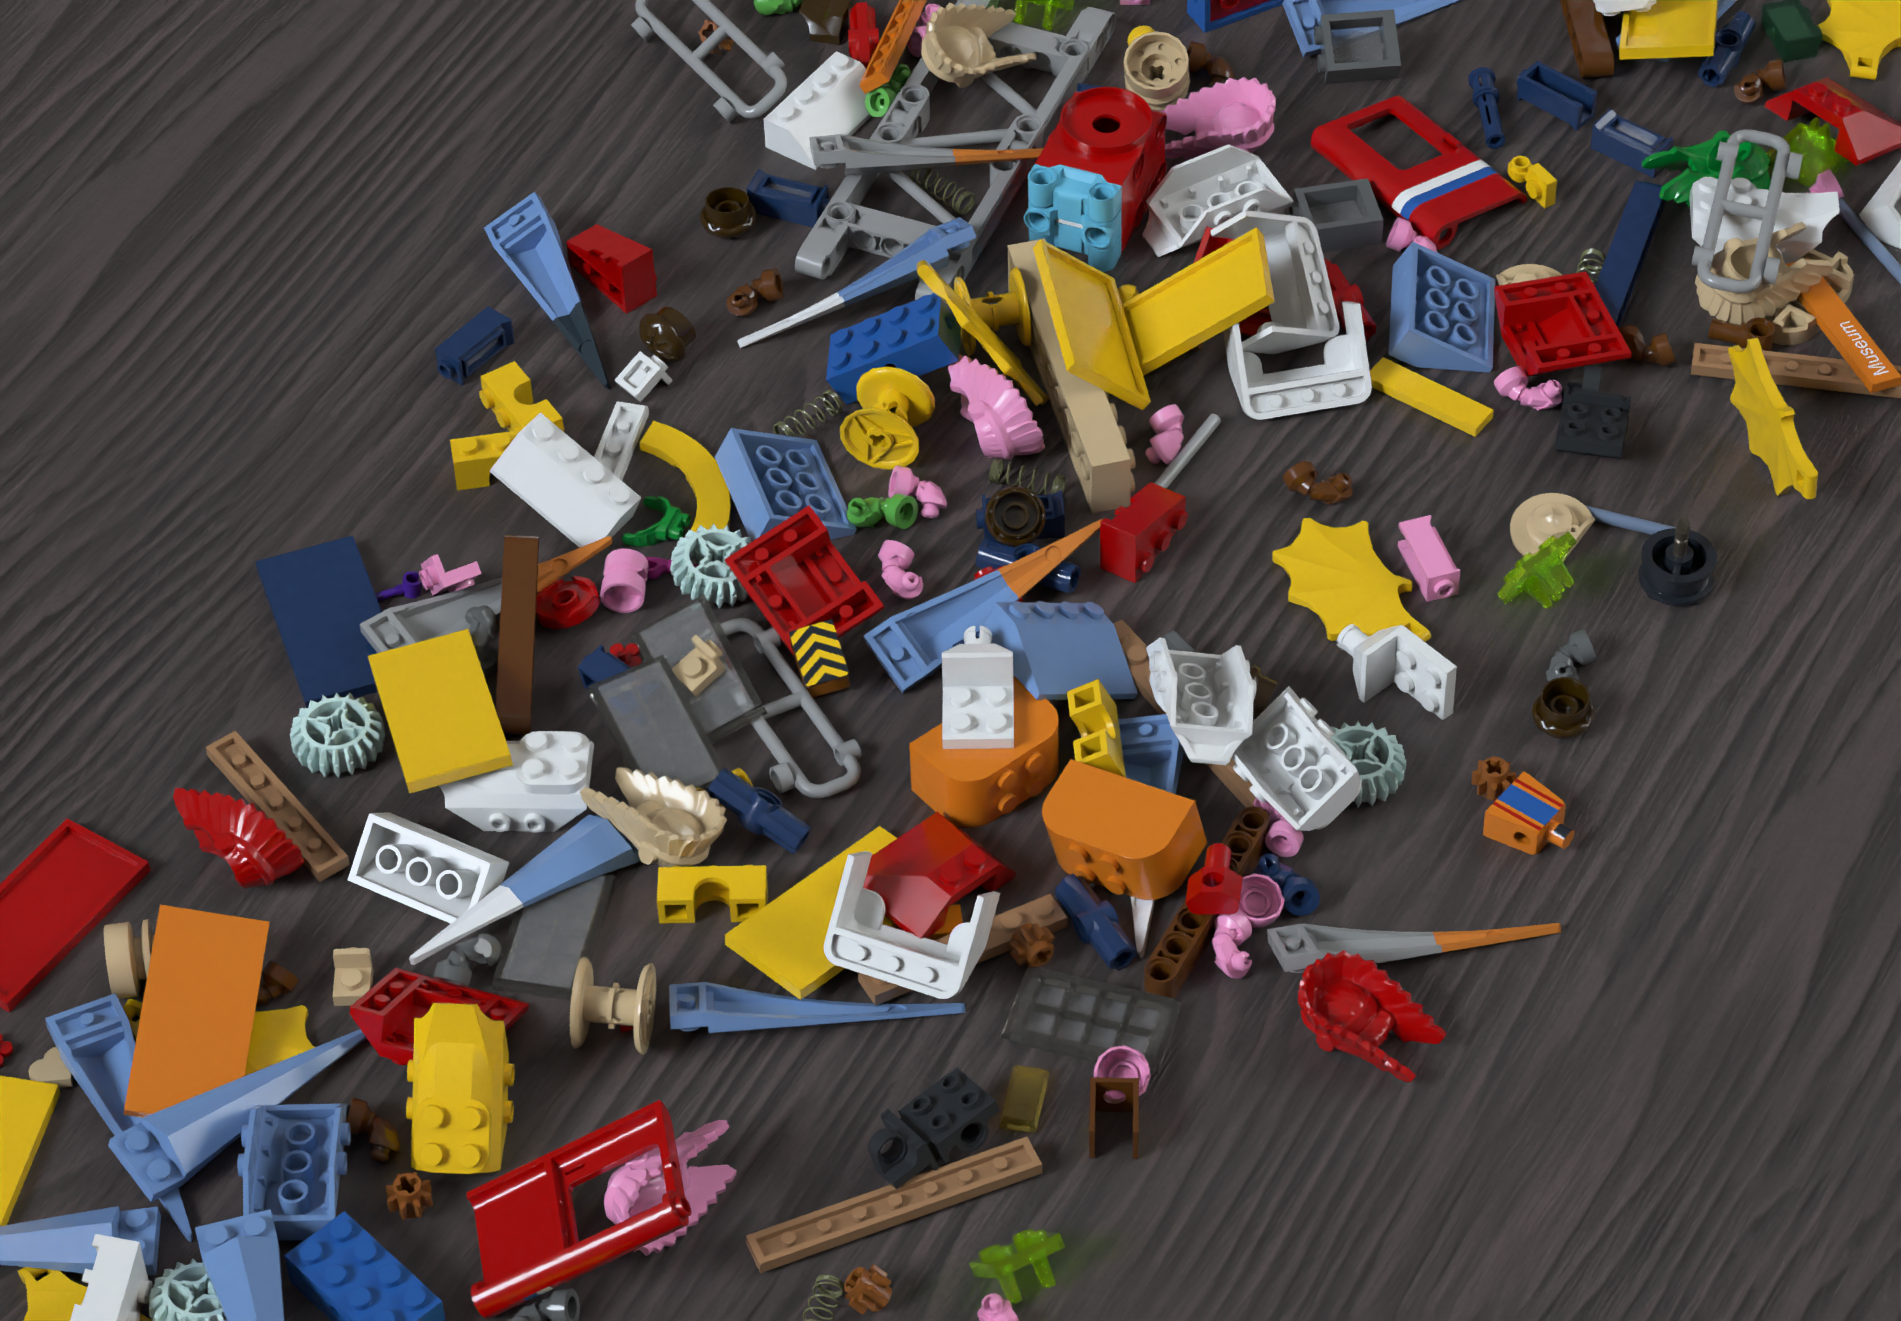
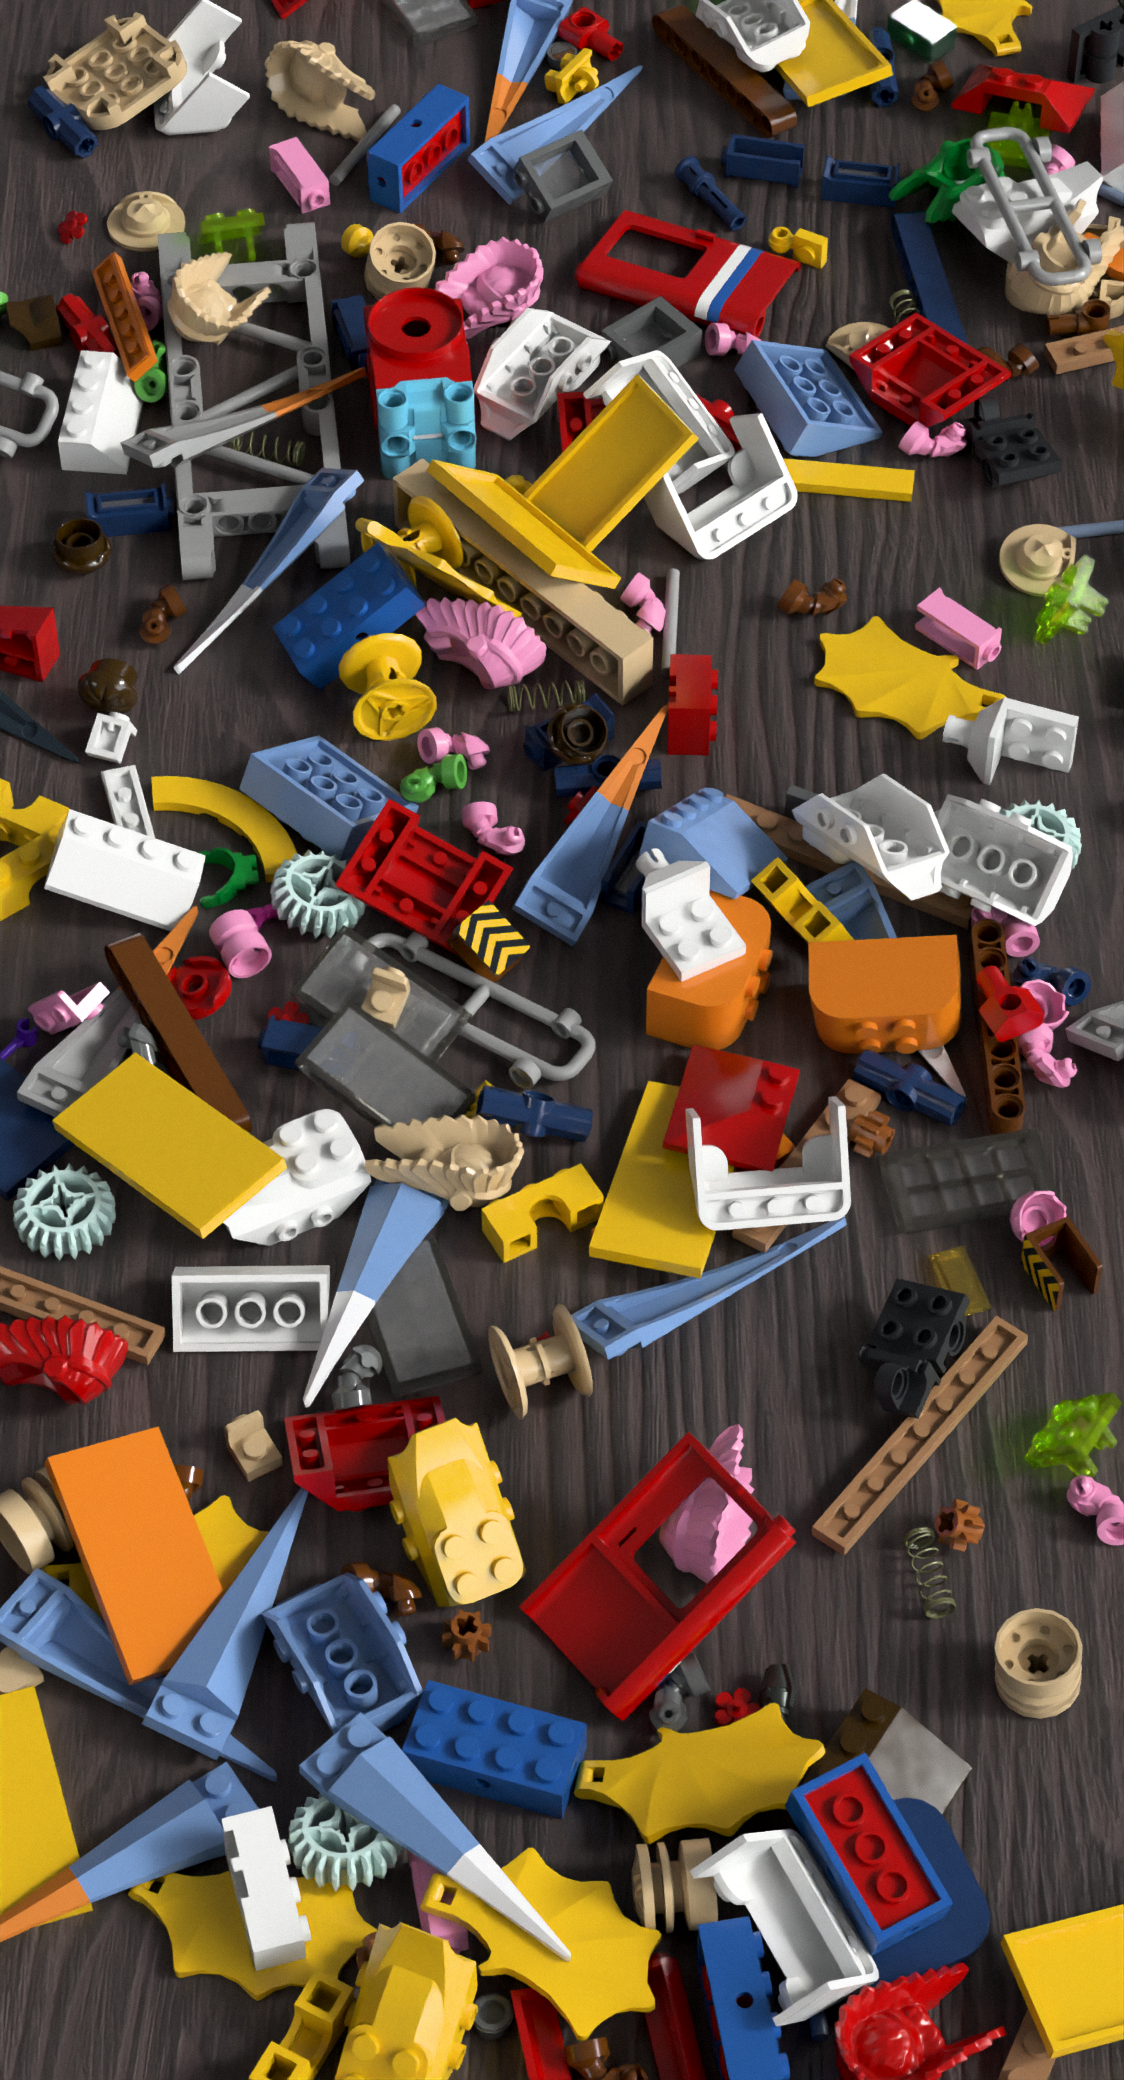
camera: 30 degrees left, 5 degrees up
(827, 404) = (291, 734): olive piece -> none

